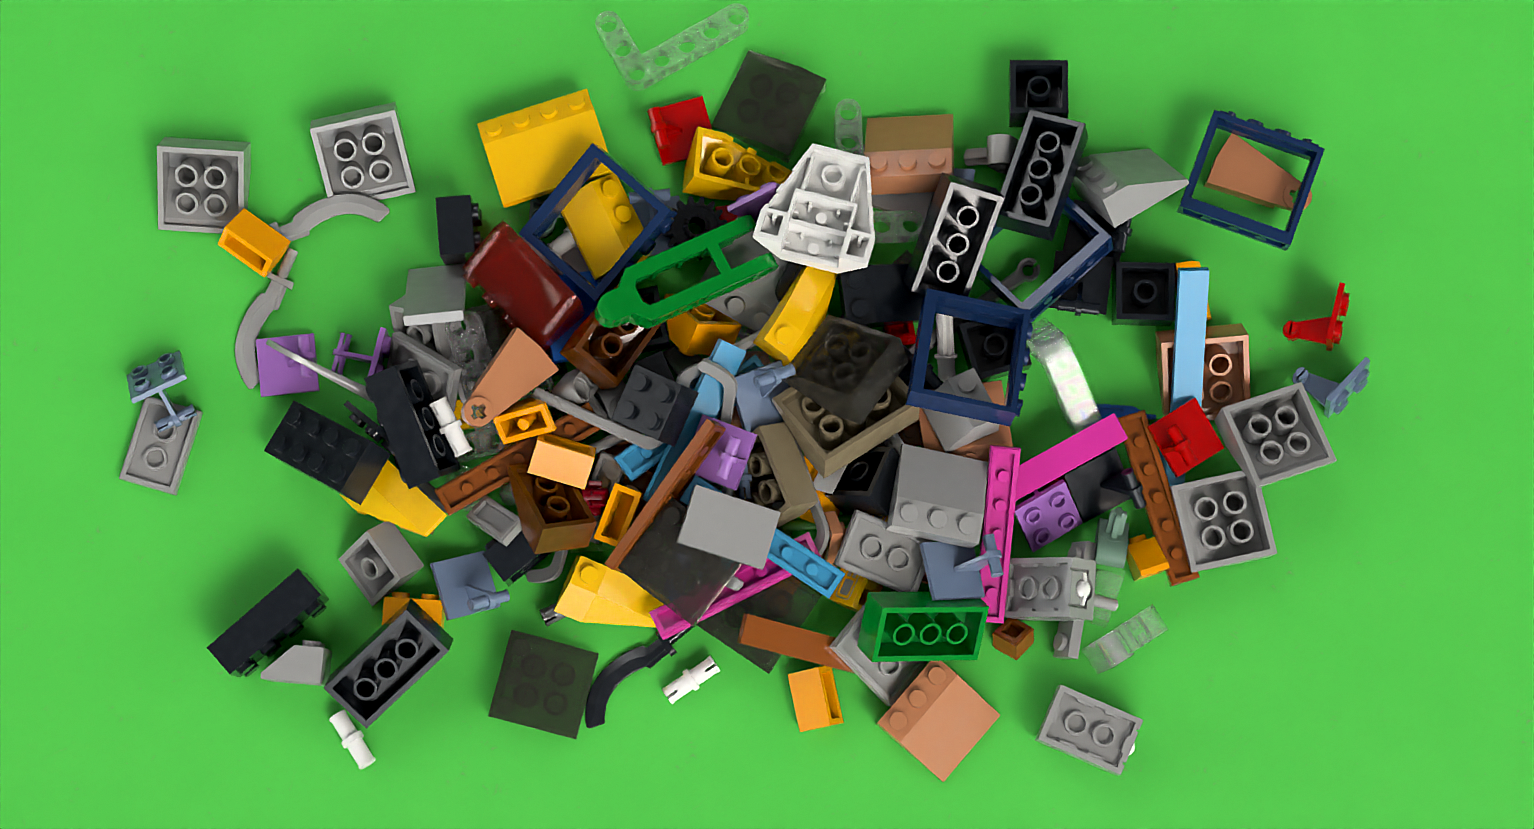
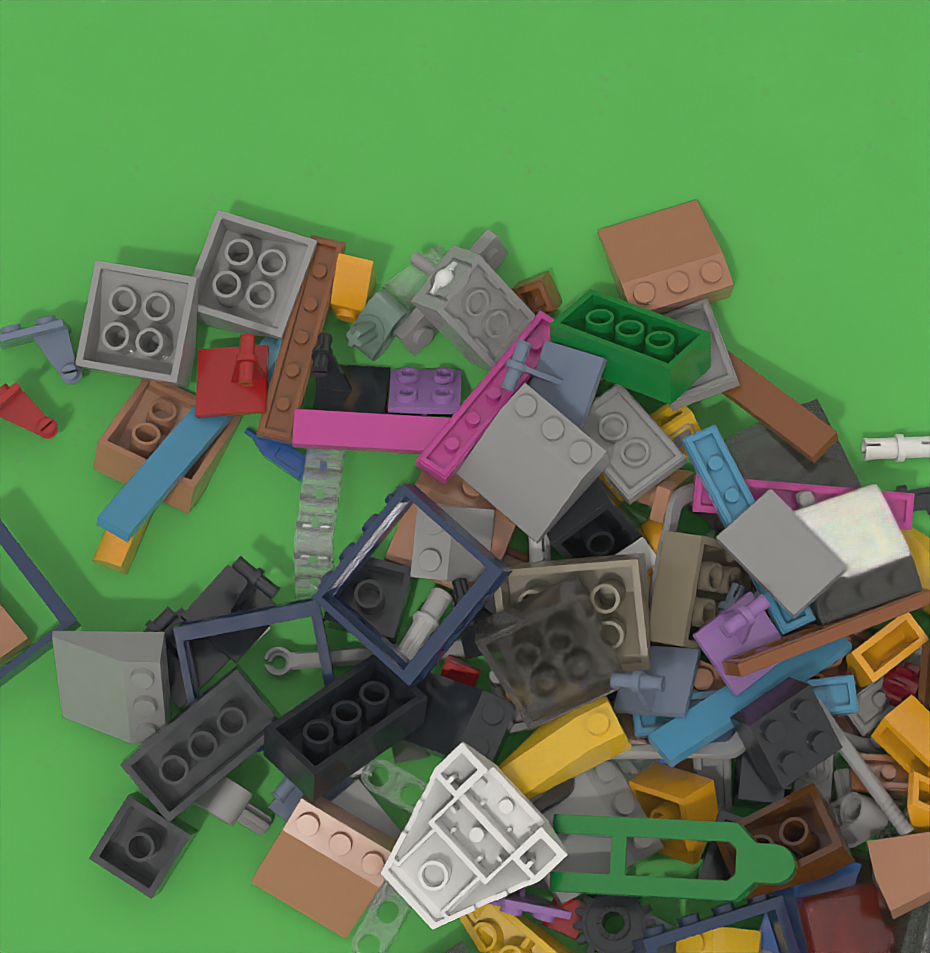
camera: 145 degrees left, 5 degrees down
(730, 388) = (690, 712): light grey piece -> none
(815, 698) = (781, 350): light orange brick -> none
(1089, 730) = (520, 157): light grey piece -> none
(1124, 640) = (433, 224): clear beam -> none
(1143, 293) = (175, 558): black brick -> none

